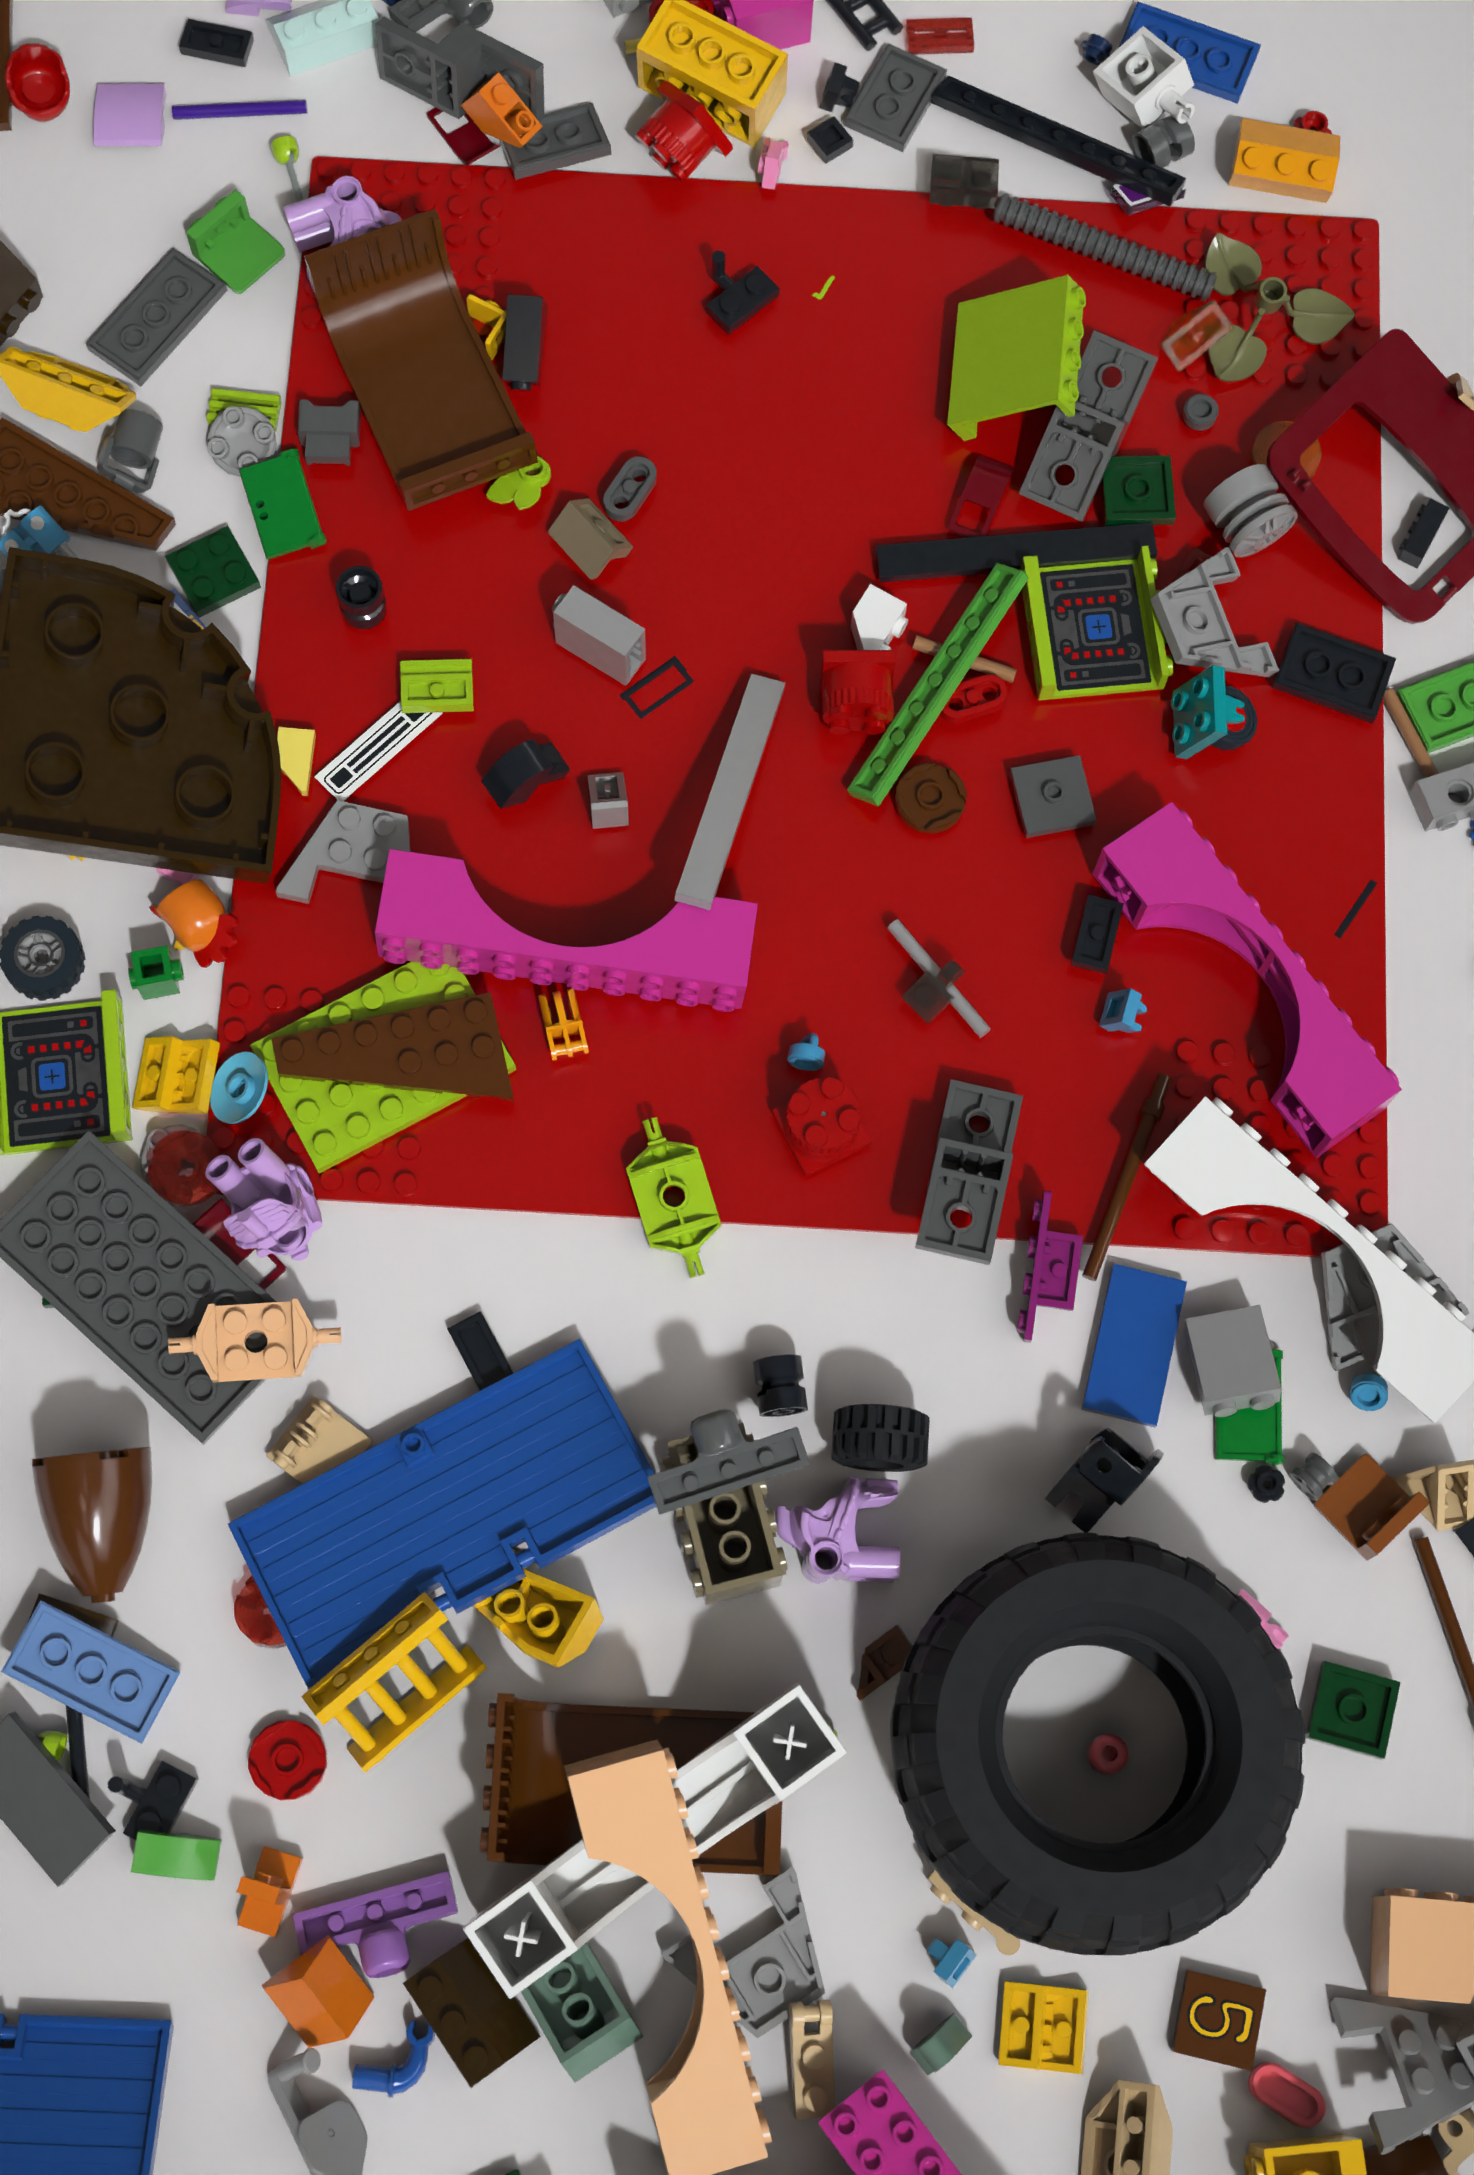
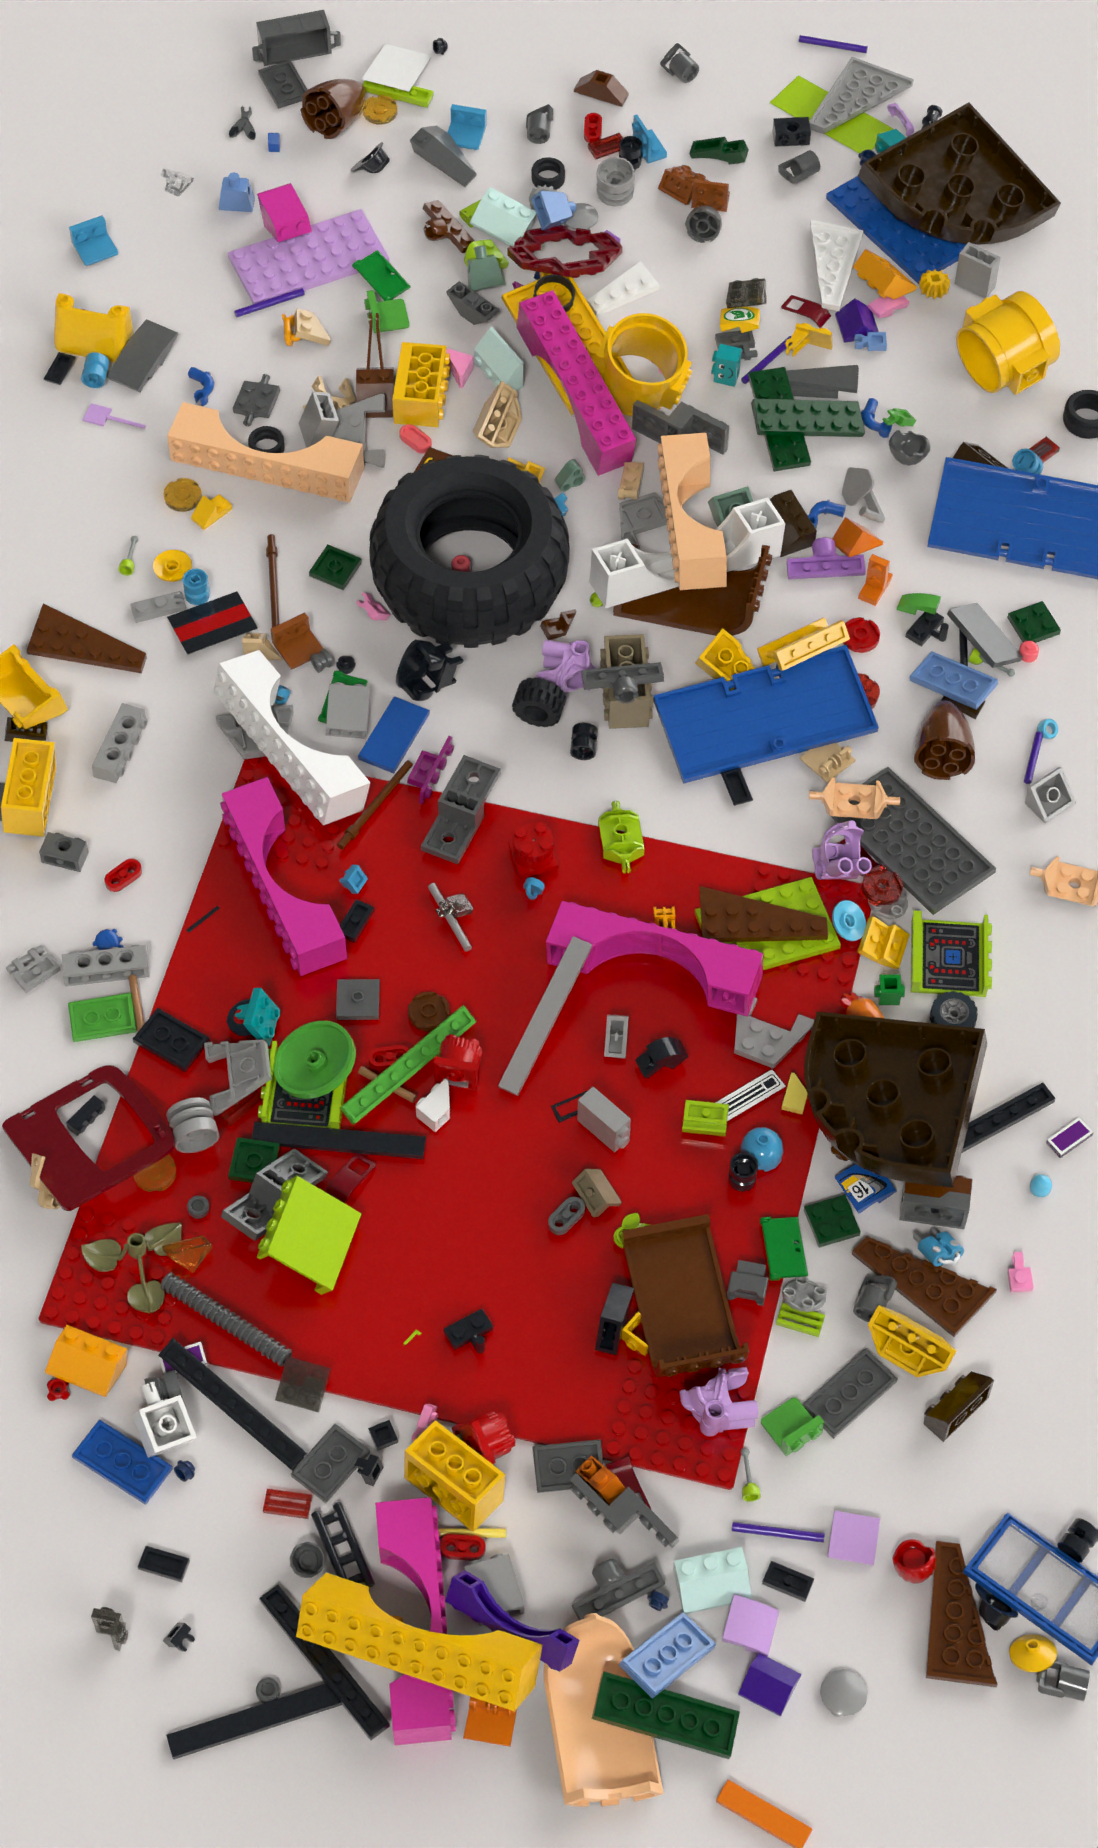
camera: 165 degrees left, 15 degrees down
(338, 652) = (764, 1146): none -> dark azure cylinder
(1091, 649) = (314, 1059): none -> bright green dish

